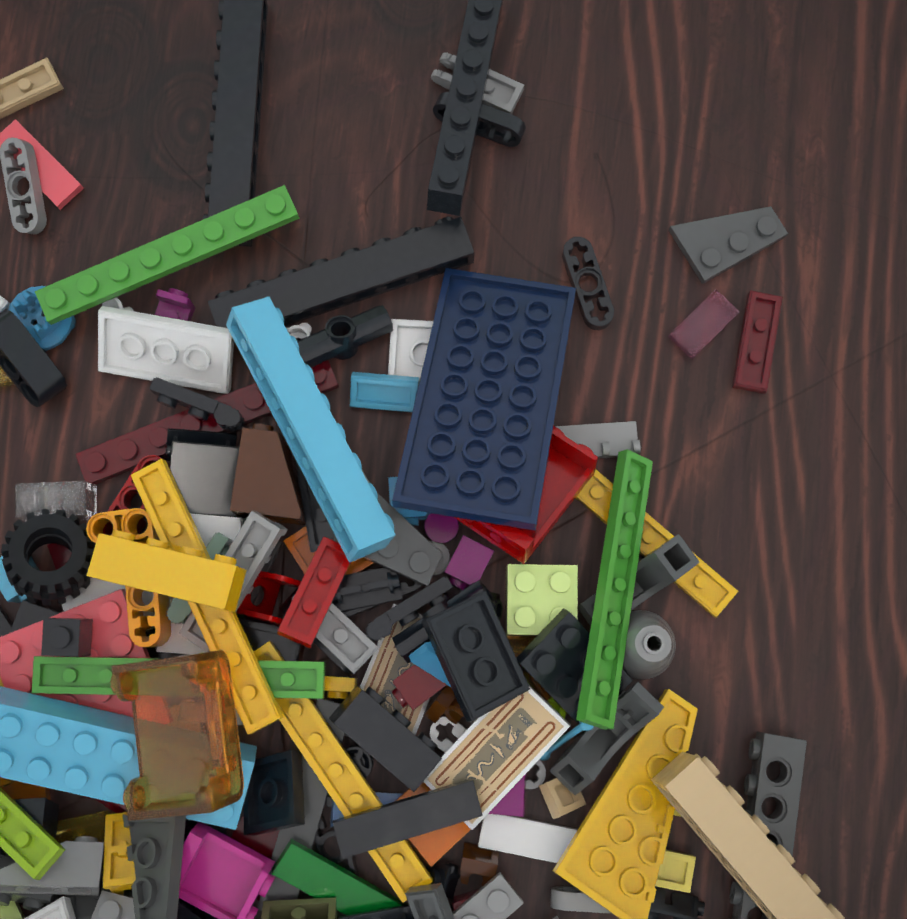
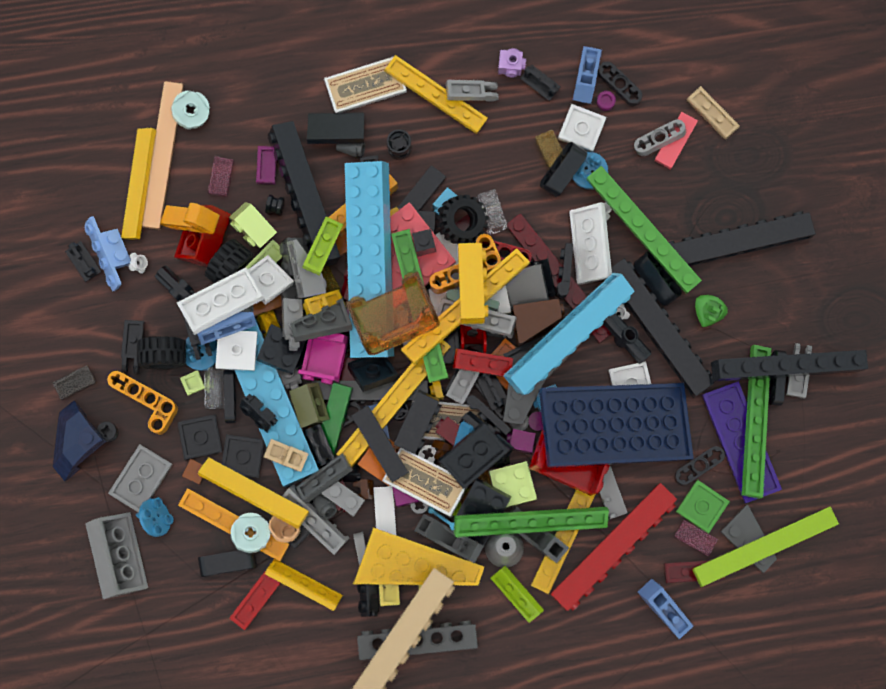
camera: 75 degrees right, 0 degrees up
(174, 304) = (616, 240): magenta bracket -> none
(259, 258) = (657, 279): none -> black beam
(337, 190) = (710, 309): none -> bright green piece
(383, 391) = (603, 367): medium azure tile -> none
(559, 173) = (756, 431): none -> bright green plate
(560, 799) = (410, 523): tan plate -> none
(568, 206) = (728, 414): none -> dark purple plate
(655, 298) = (702, 506): none -> bright green tile
(689, 462) = (618, 542): none -> red brick
(726, 644) = (517, 594): none -> lime plate
(750, 219) = (765, 546): none -> lime tile
(808, 405) = (665, 608): none -> medium blue slope

